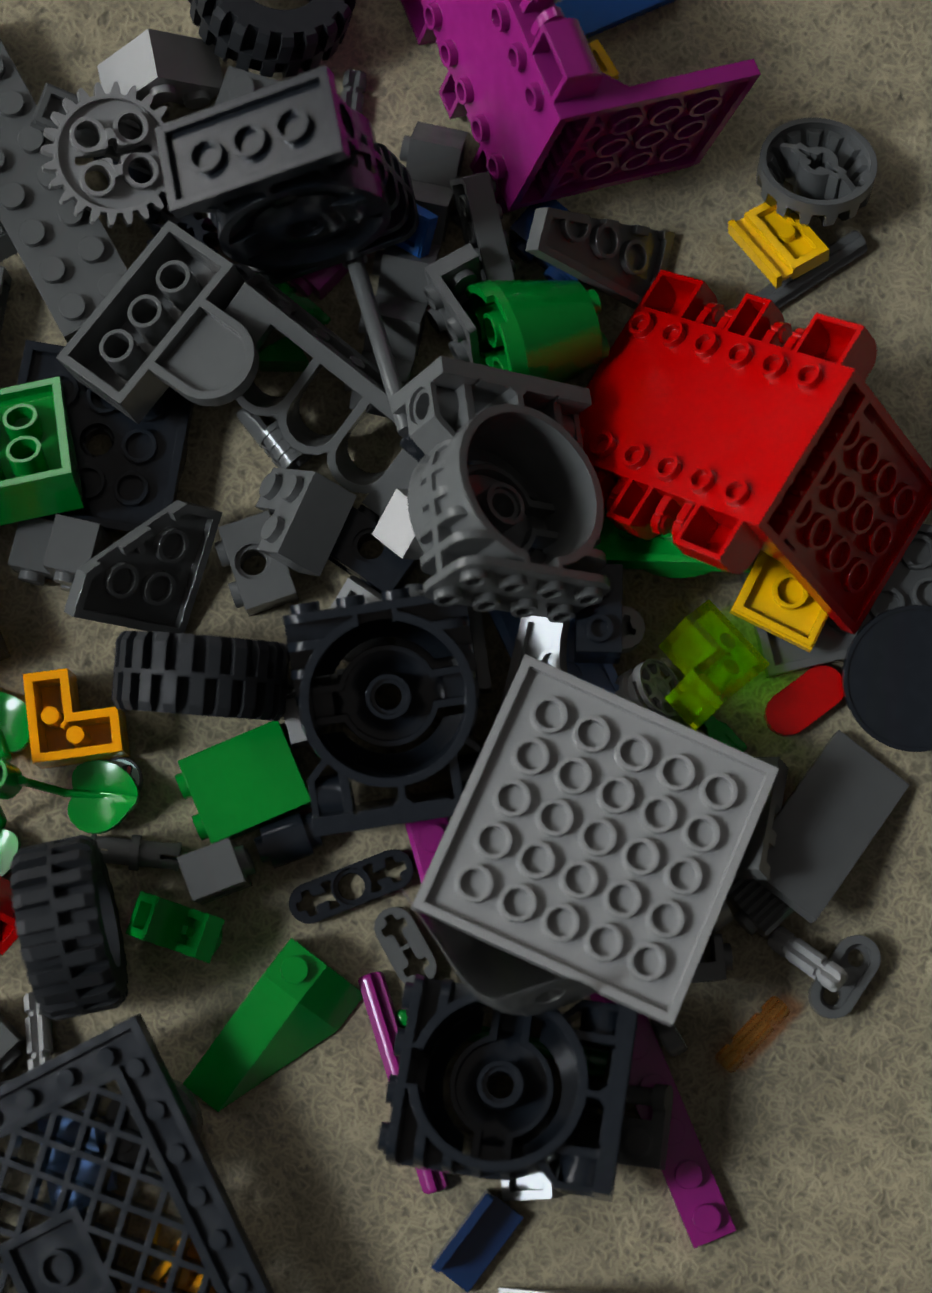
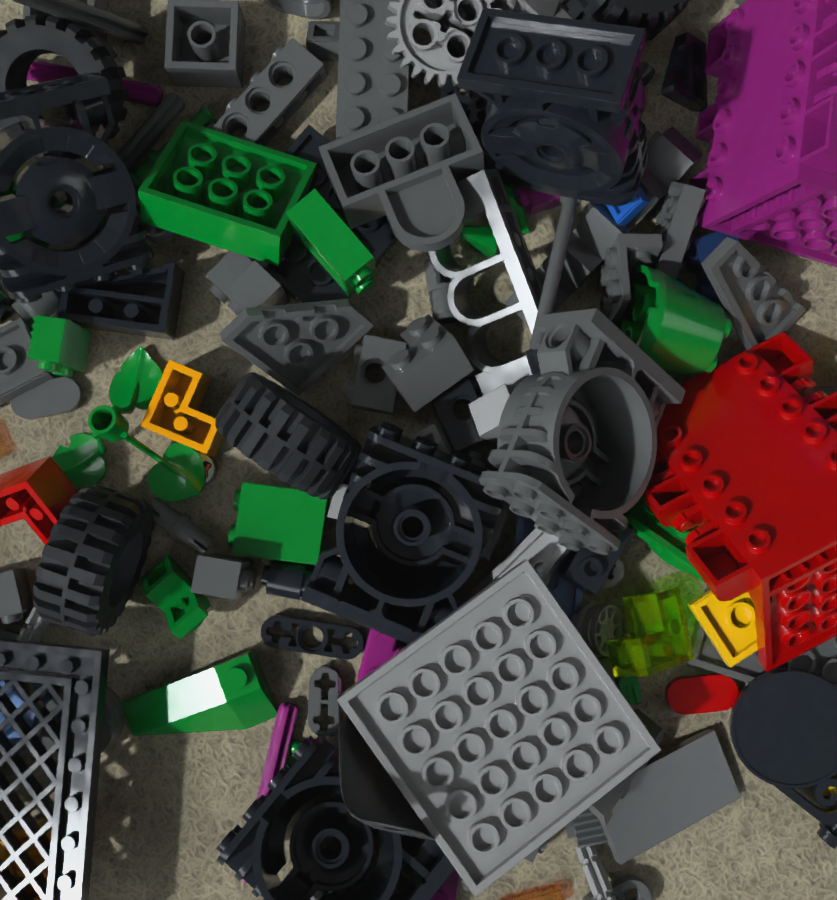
camera: 30 degrees right, 5 degrees up
(131, 450) = (333, 244): none -> green window
(399, 57) = (685, 74): none -> black wing

